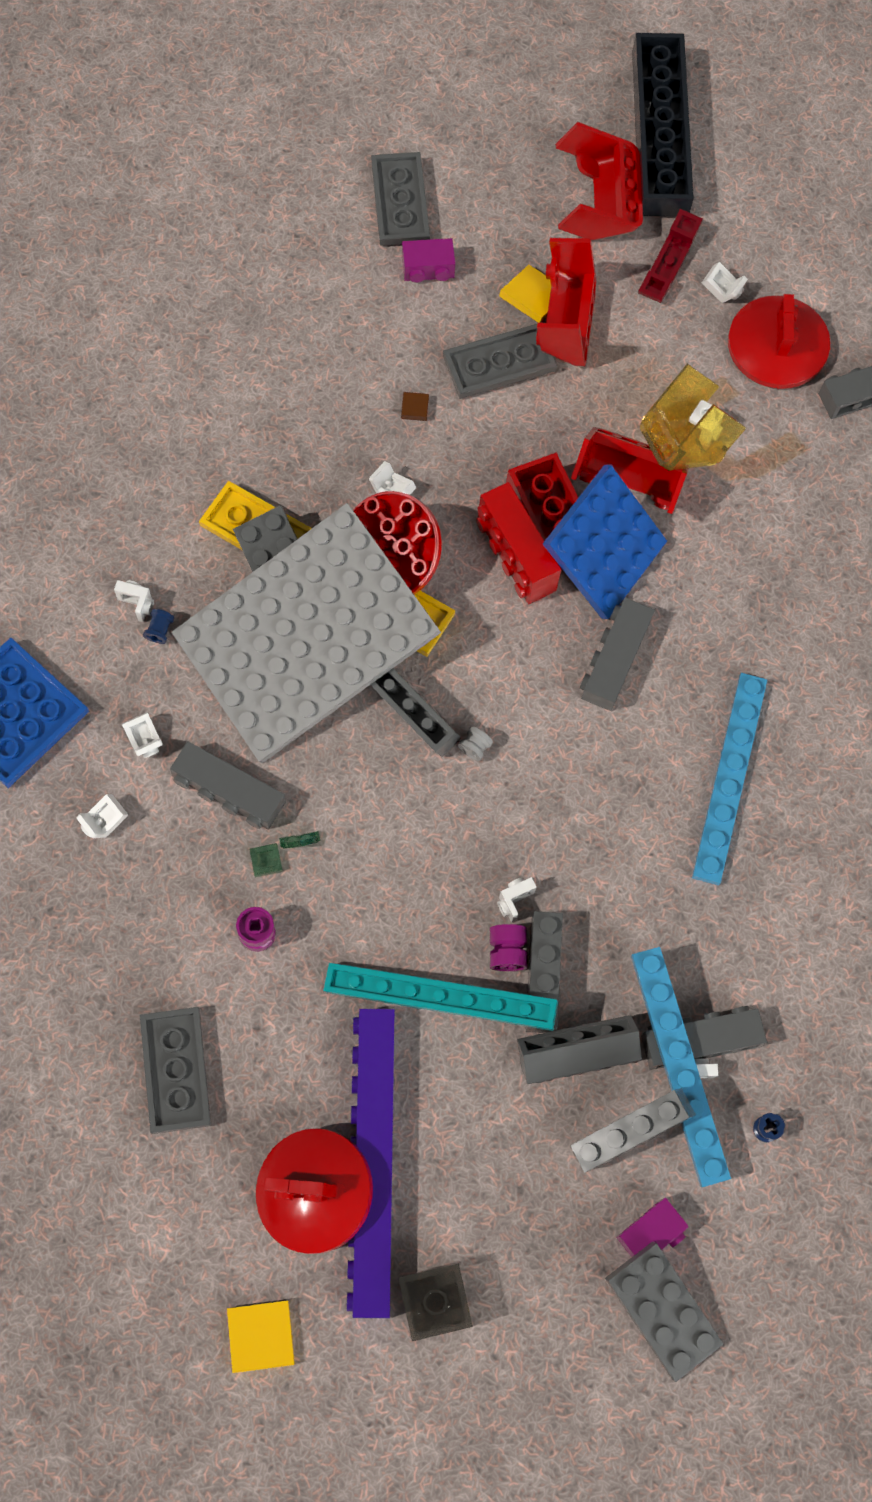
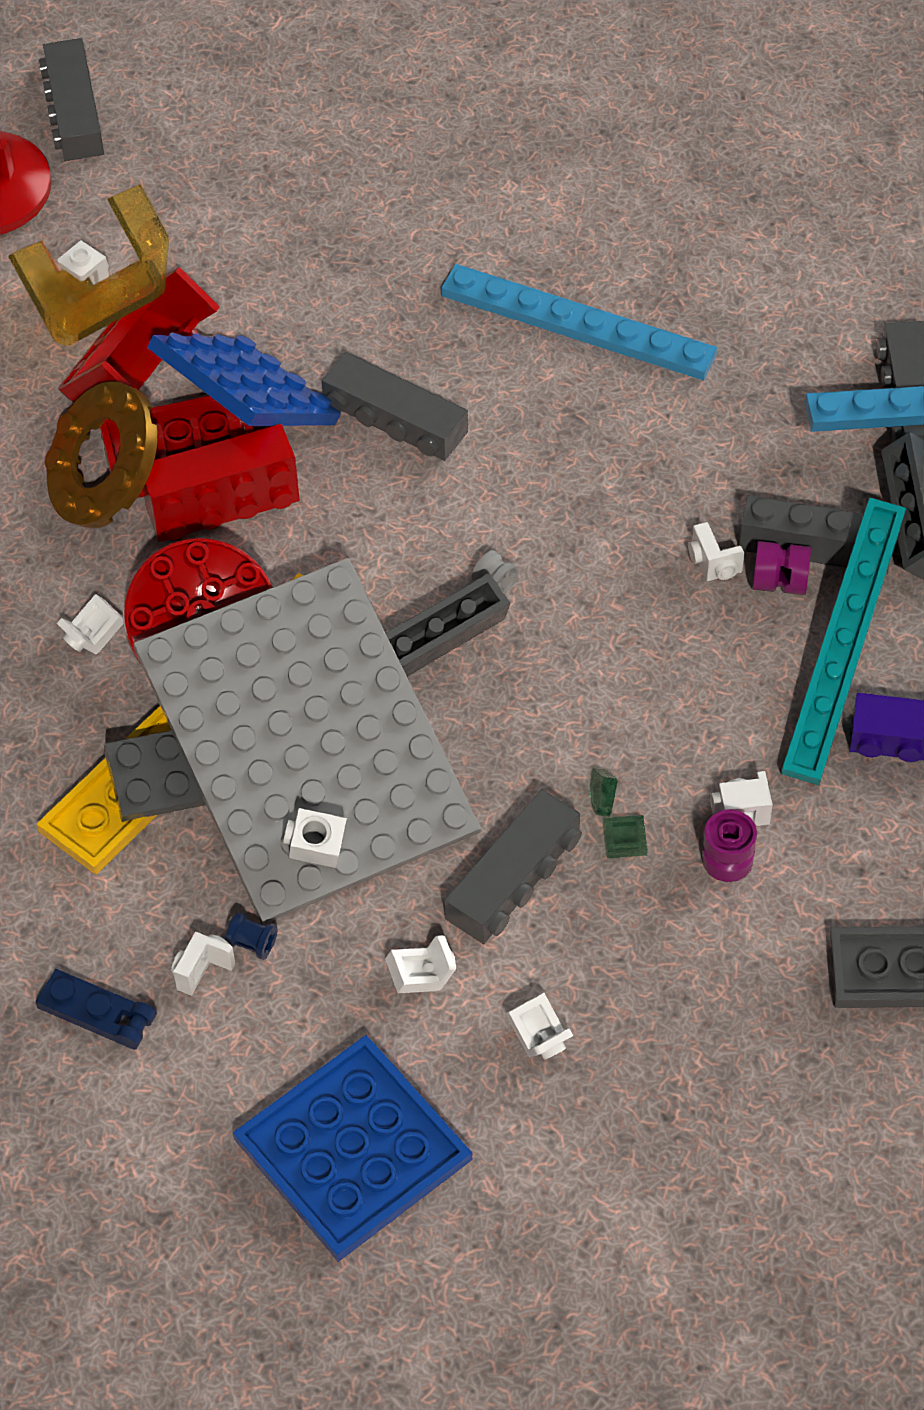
camera: 75 degrees left, 15 degrees down
(99, 542) = (95, 1009): none -> dark blue plate
(229, 657) = (328, 825): none -> white brick
(298, 937) = (745, 796): none -> white brick
(558, 455) = (137, 452): none -> pearl gold plate

